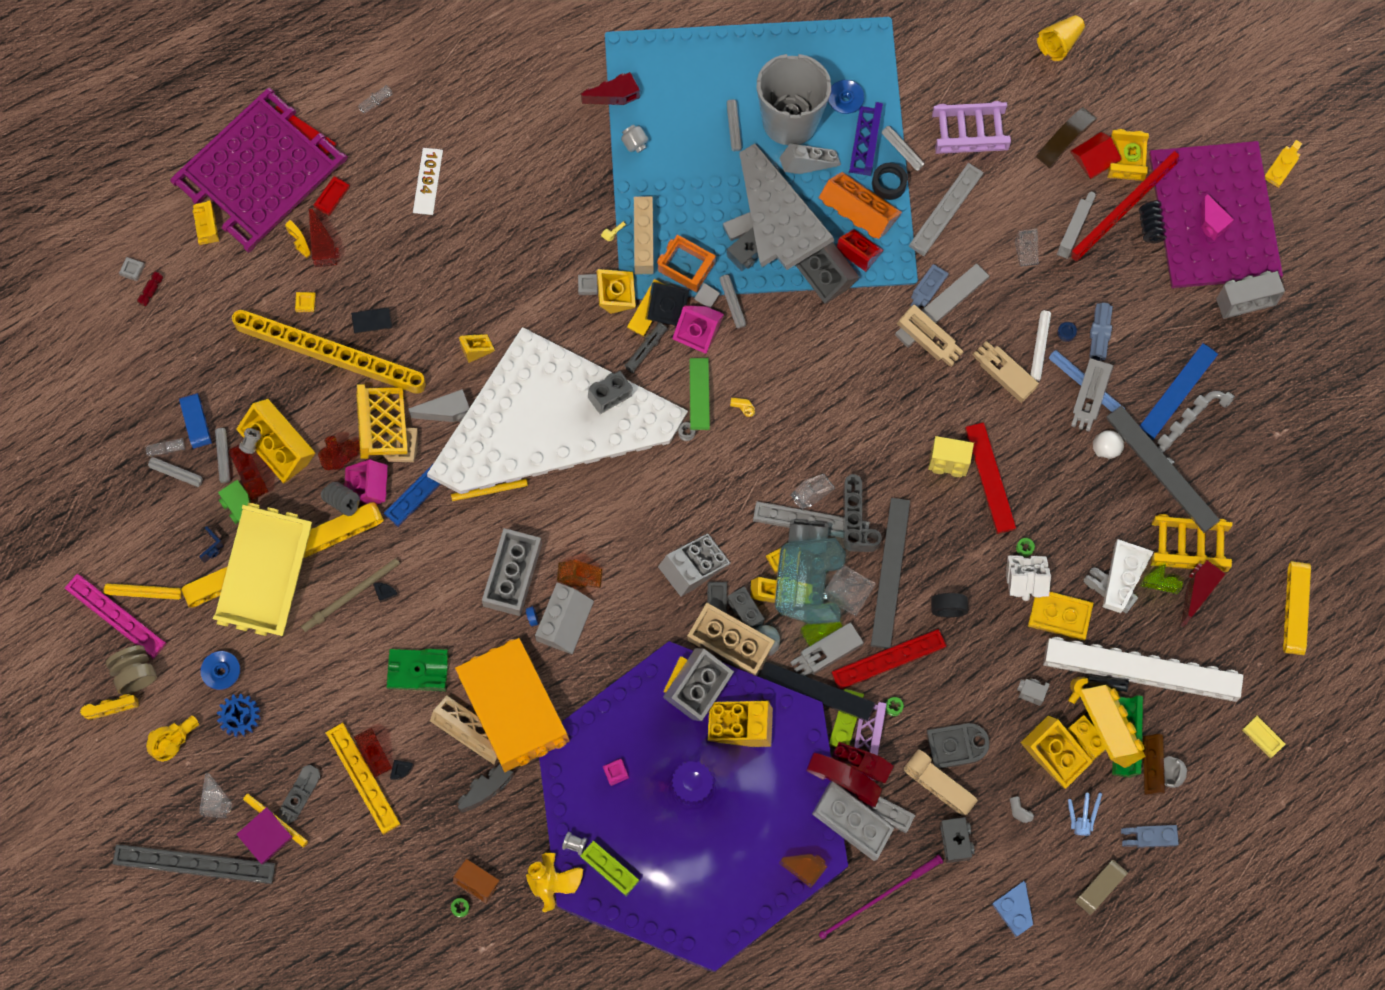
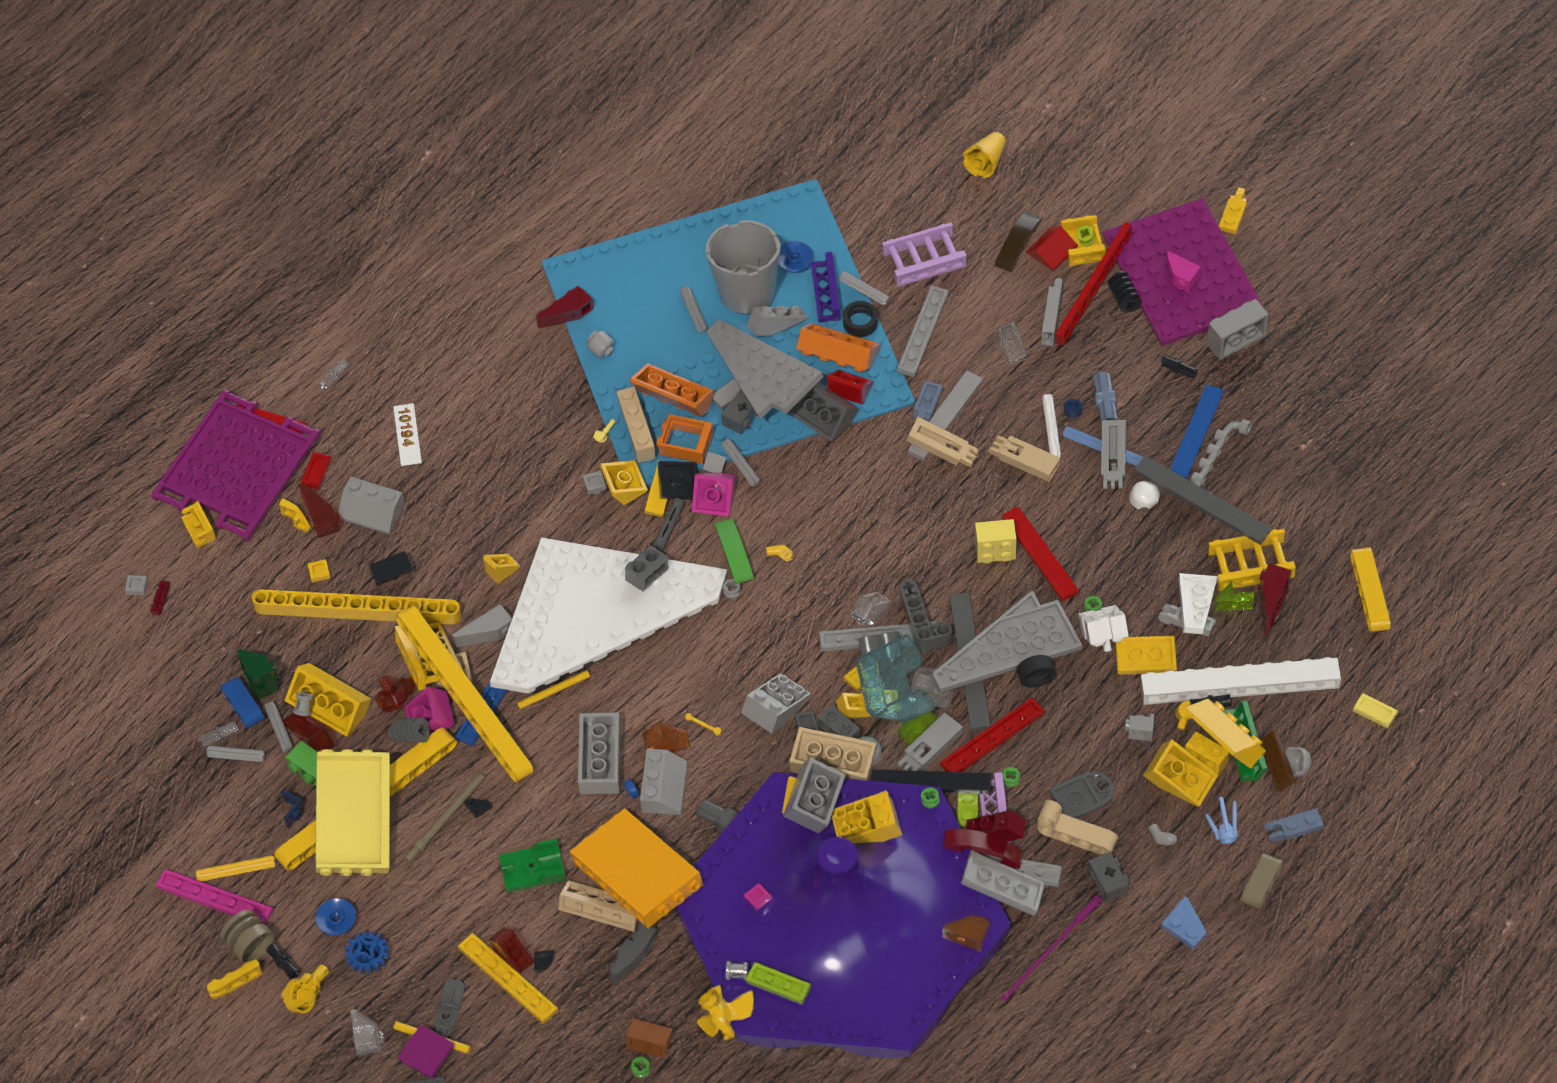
camera: 10 degrees left, 15 degrees down
(159, 701) = (283, 961): none -> black pin
(217, 398) = (259, 673): none -> dark green slope
(371, 248) = (370, 505): none -> light grey slope
(401, 476) = (464, 694): none -> yellow beam
(608, 671) = (716, 815): none -> dark grey piece
(630, 577) = (717, 731): none -> yellow hinge
(689, 209) = (673, 389): none -> orange slope
(809, 707) = (929, 792): none -> bright green bush
(945, 564) = (1016, 635): none -> light grey wing
(1181, 316) = (1178, 366): none -> black axle

